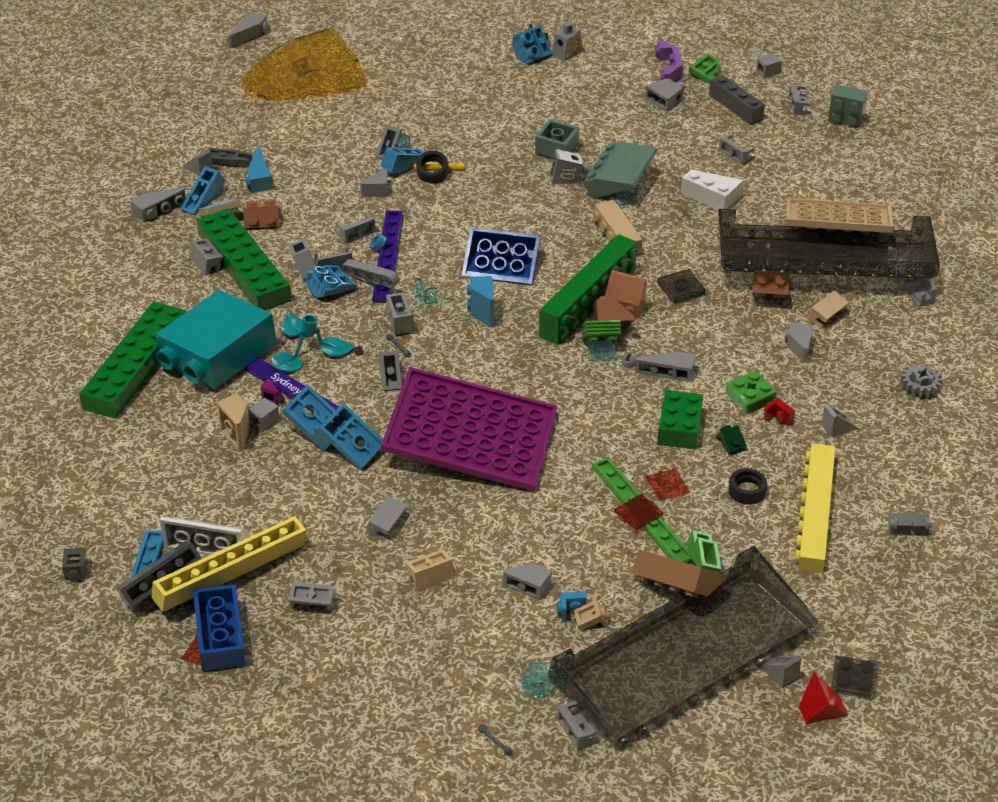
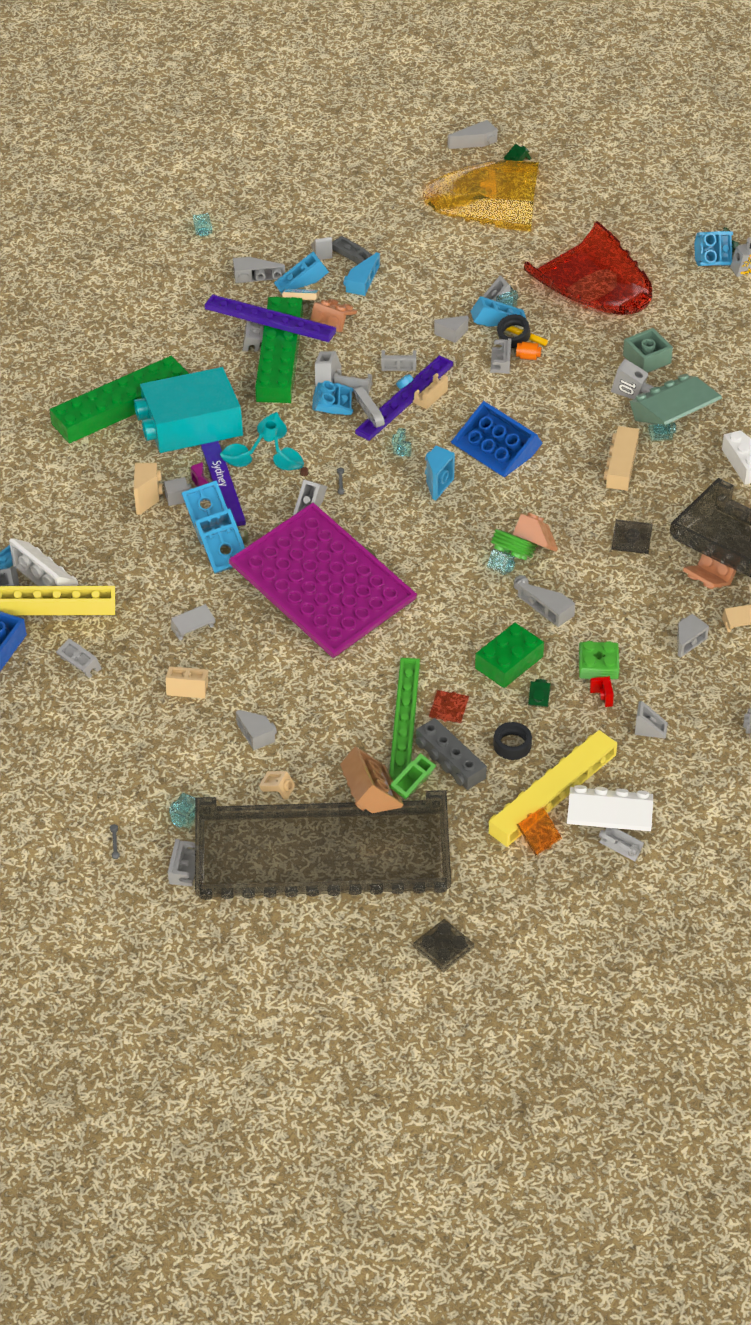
camera: 35 degrees right, 5 degrees up
(69, 185) = (202, 224): none -> clear light blue bracket
(218, 234) = (270, 318): none -> dark purple tile
(298, 29) = (517, 153): none -> dark green bracket
(399, 313) = (360, 452): light grey brick -> none
(407, 241) = (432, 392): none -> tan hinge
(440, 190) = (501, 357): none -> light grey hinge
(458, 177) = (528, 350): none -> orange brick
(460, 98) = (597, 275): none -> clear red windscreen
(569, 602) = (269, 763): dark azure bracket -> none
(577, 297) = (544, 498): green brick -> none
(628, 291) = (567, 522): nougat slope -> none
(638, 512) = (397, 717): clear red piece -> none
(711, 519) = (450, 754): none -> dark grey brick
(783, 669) = (387, 908): light grey slope -> none
(820, 702) = (394, 949): red slope -> none
(841, 546) = (539, 831): none -> clear orange piece
(880, 499) = (610, 808): none -> white slope

